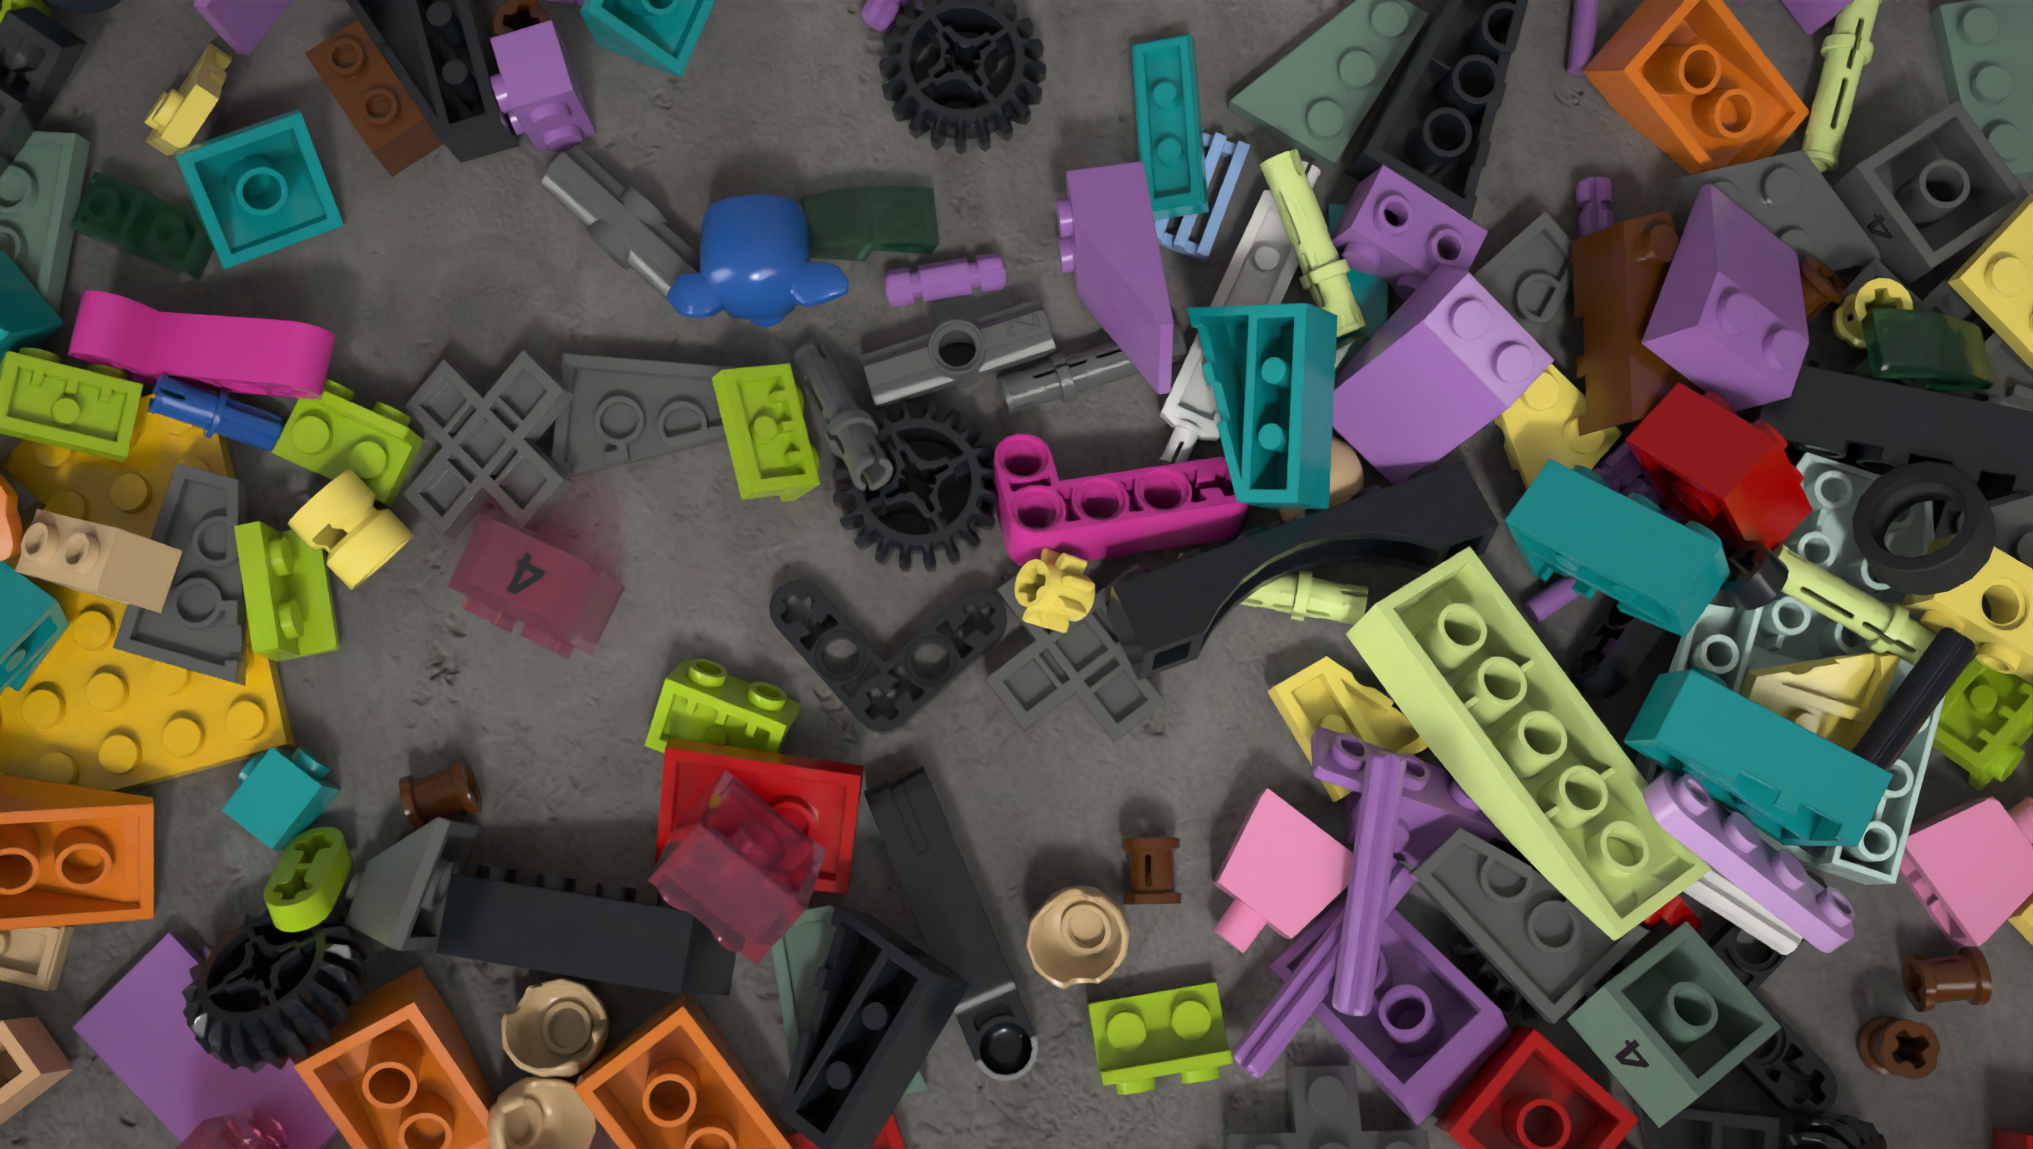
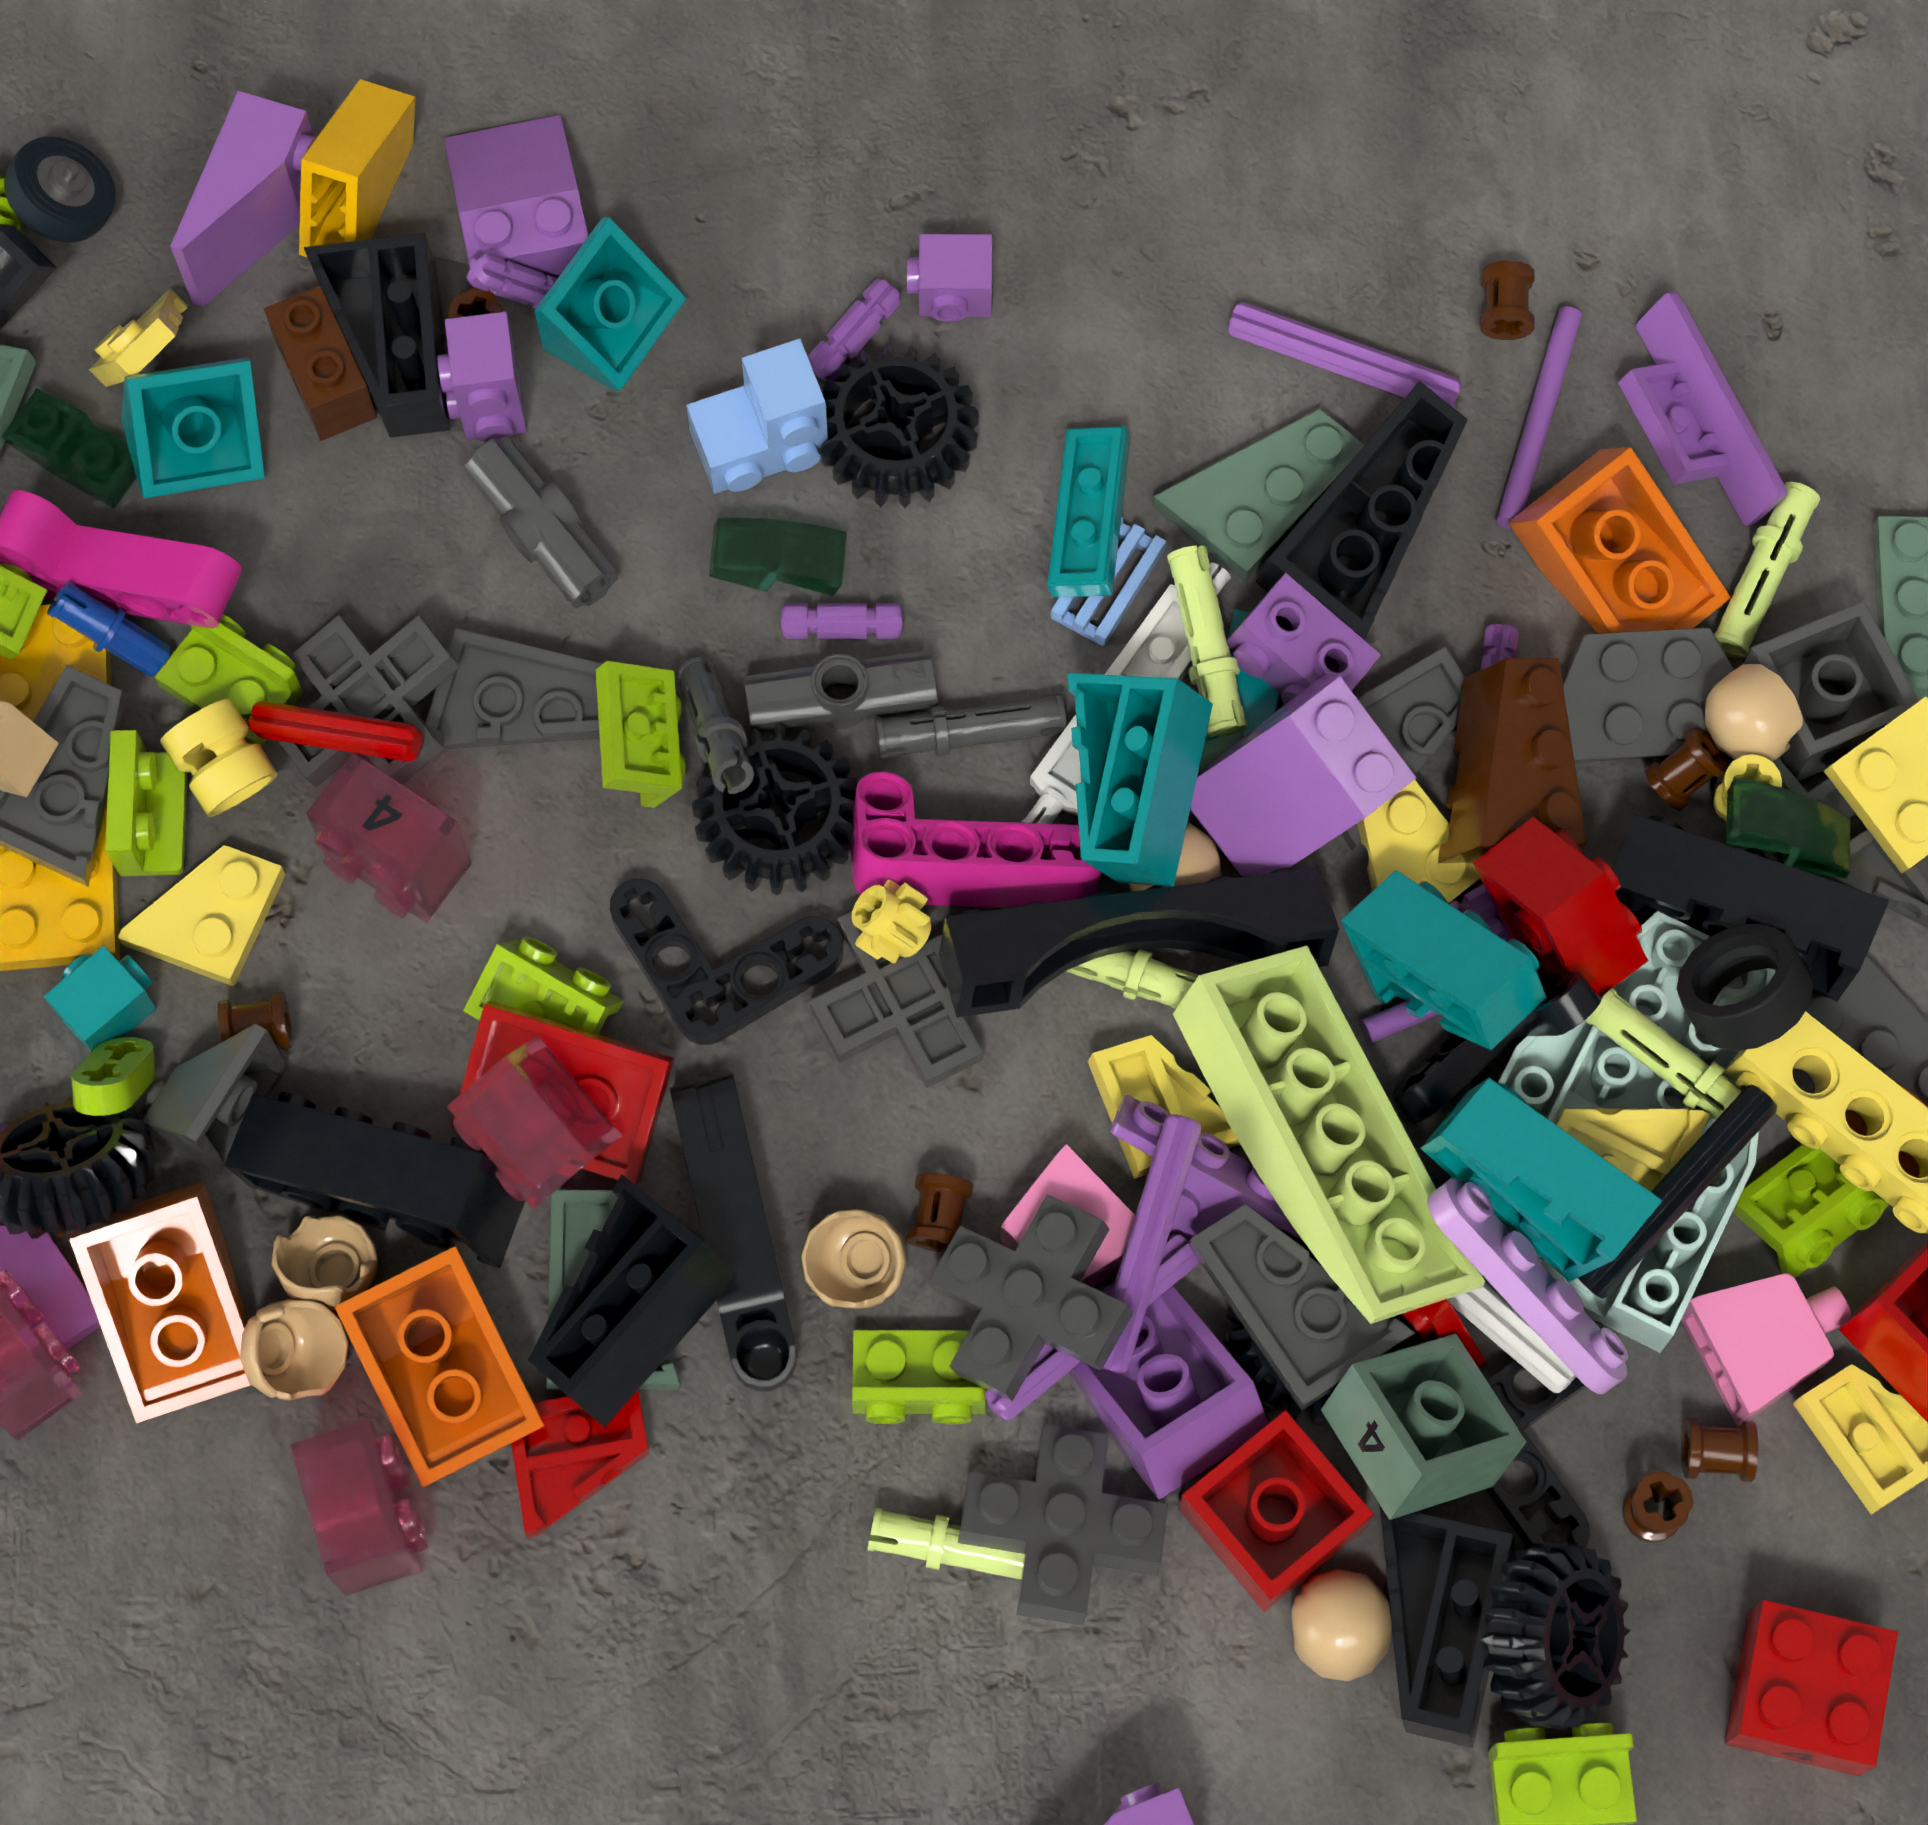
camera: 10 degrees right, 10 degrees down
(375, 687) = (209, 915): none -> light yellow wing
(463, 485) = (336, 731): none -> red axle
(755, 263) = (658, 570): blue piece -> none
(831, 91) = (764, 425): none -> light blue brick
(1117, 263) = (1008, 622): medium lavender slope -> none
(1263, 957) = (1030, 1297): none -> dark grey plate
(1731, 306) = (1599, 754): medium lavender slope -> none
(1866, 234) = (1752, 713): none -> tan hair

